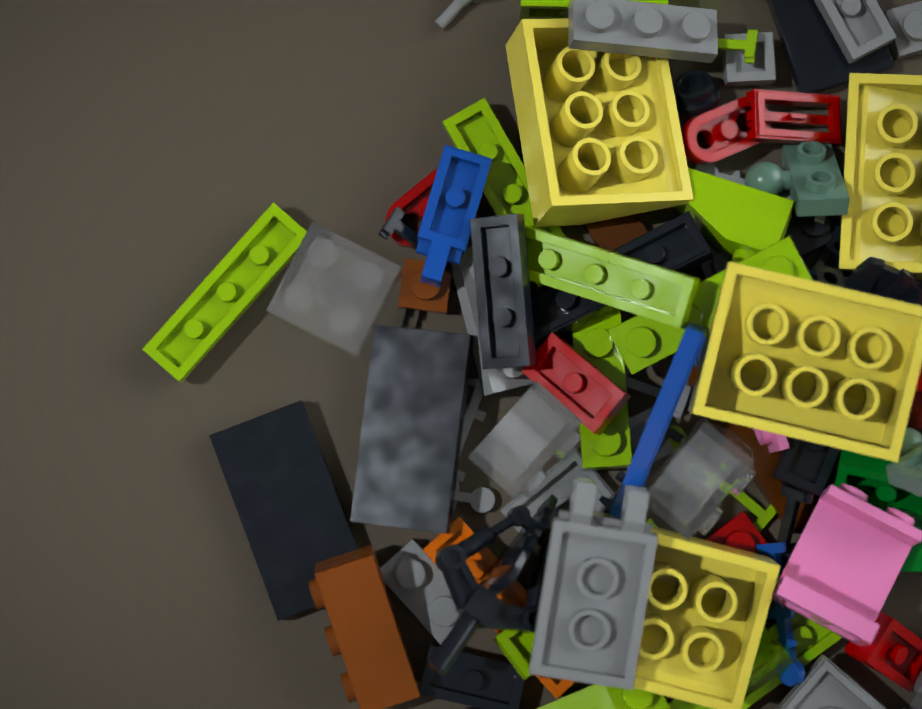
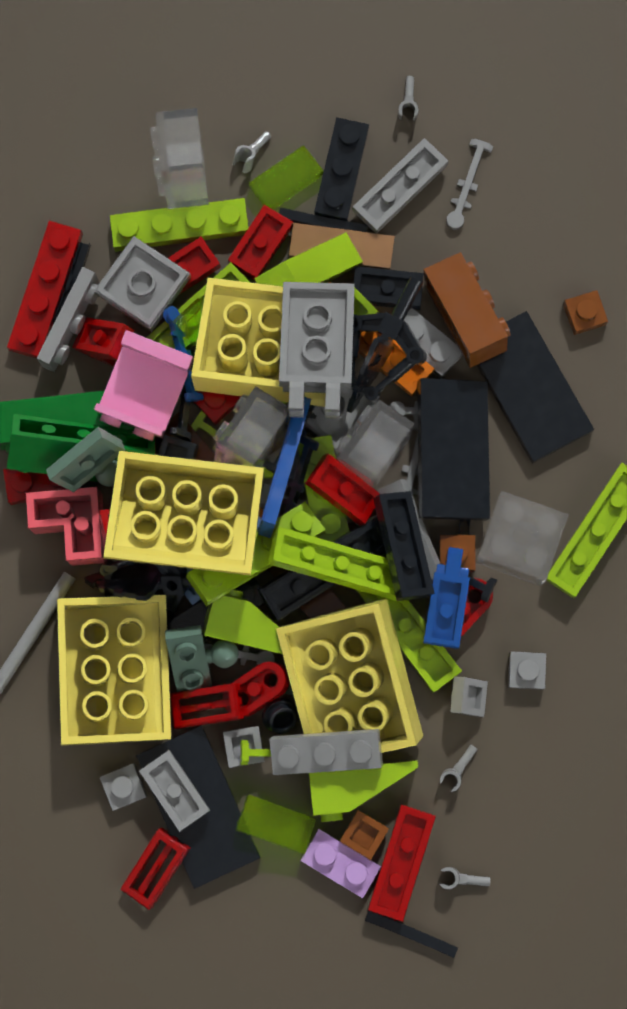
camera: 175 degrees right, 5 degrees down
(193, 609) = (585, 312): none -> dark orange plate
(353, 116) = (527, 670): none -> light grey plate
(437, 87) = (469, 696): none -> light grey plate
(638, 405) = (297, 482): none -> black piece

